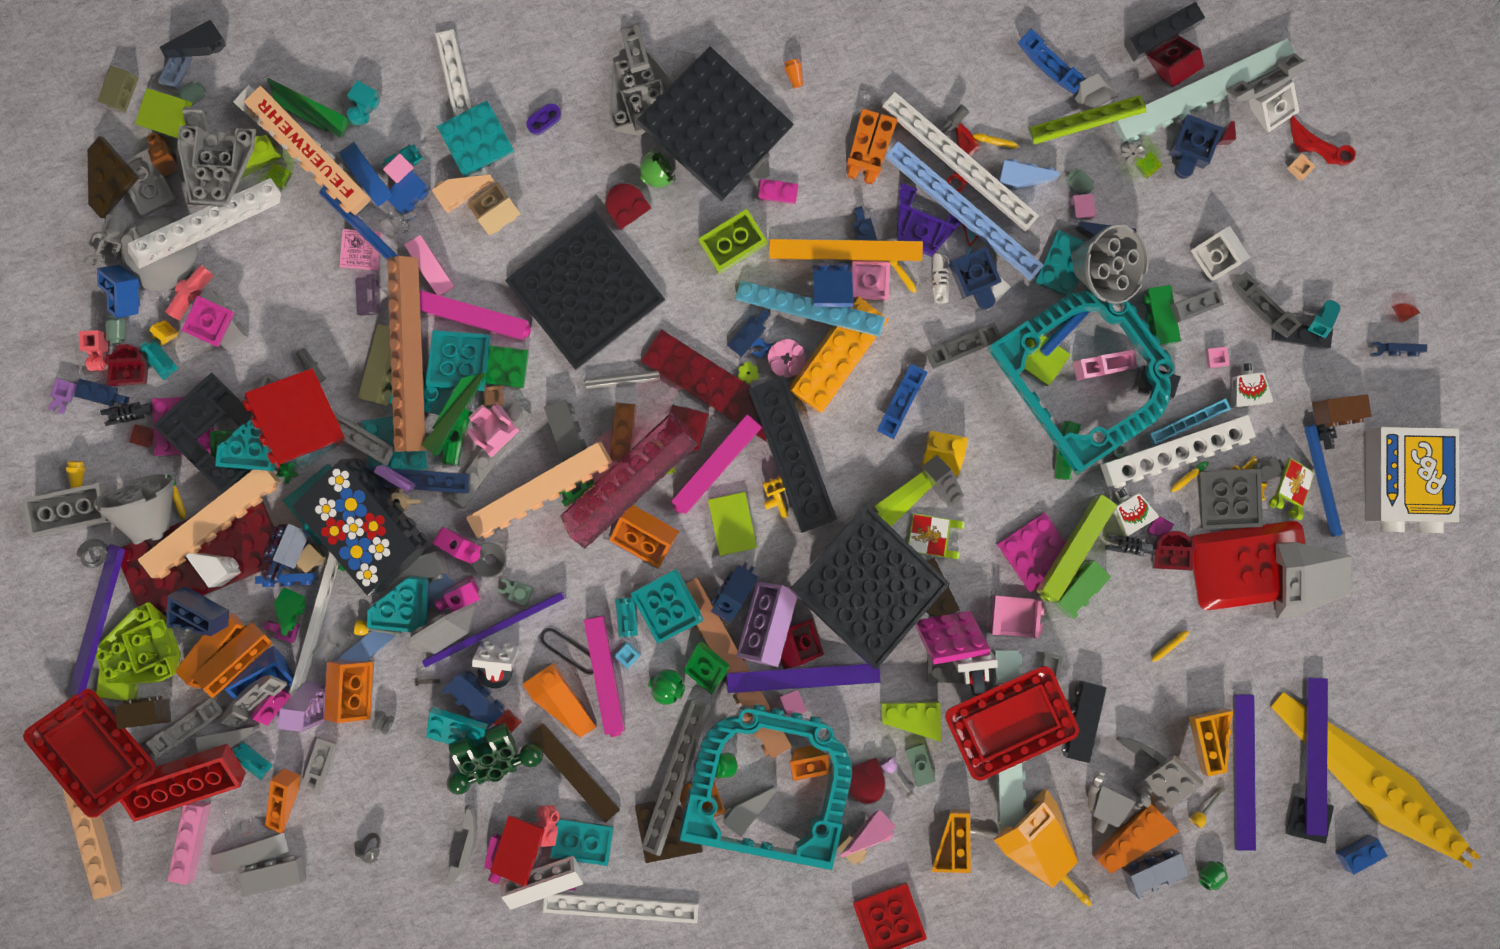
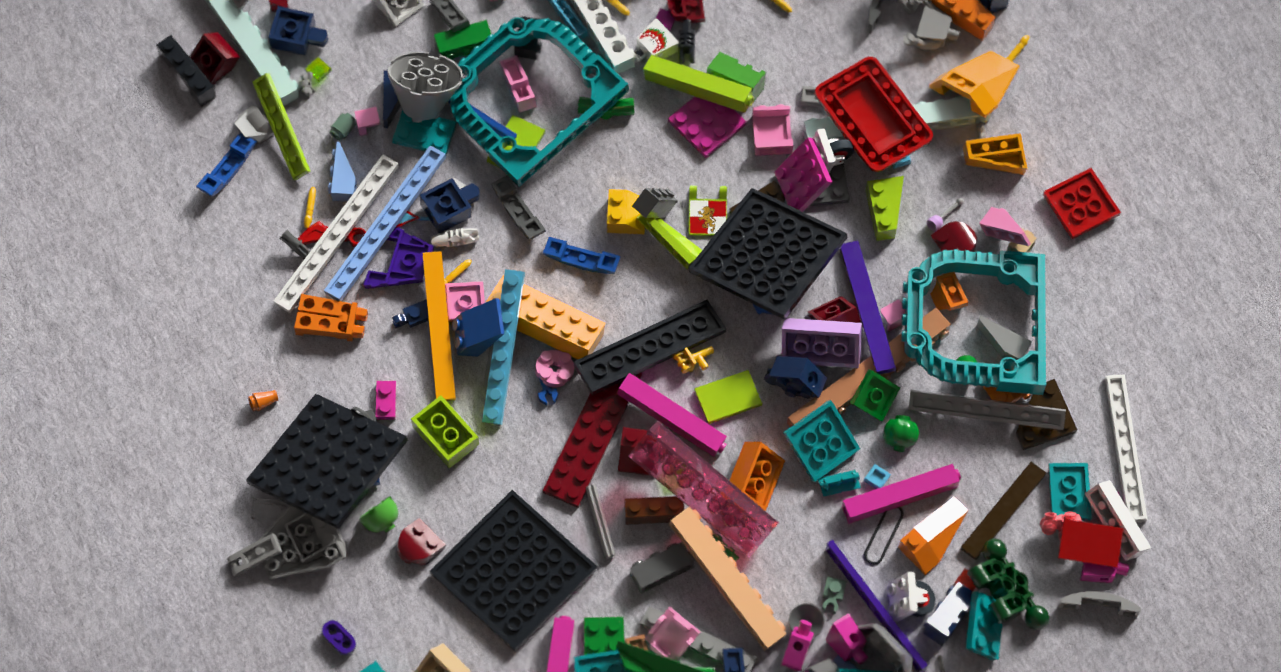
camera: 100 degrees left, 20 degrees down
(748, 334) = (534, 407): dark blue plate -> none
(748, 367) = (575, 398): lime plant -> none
(920, 765) = (929, 196): sand green plate -> none
(1087, 715) = (840, 56): black brick -> none

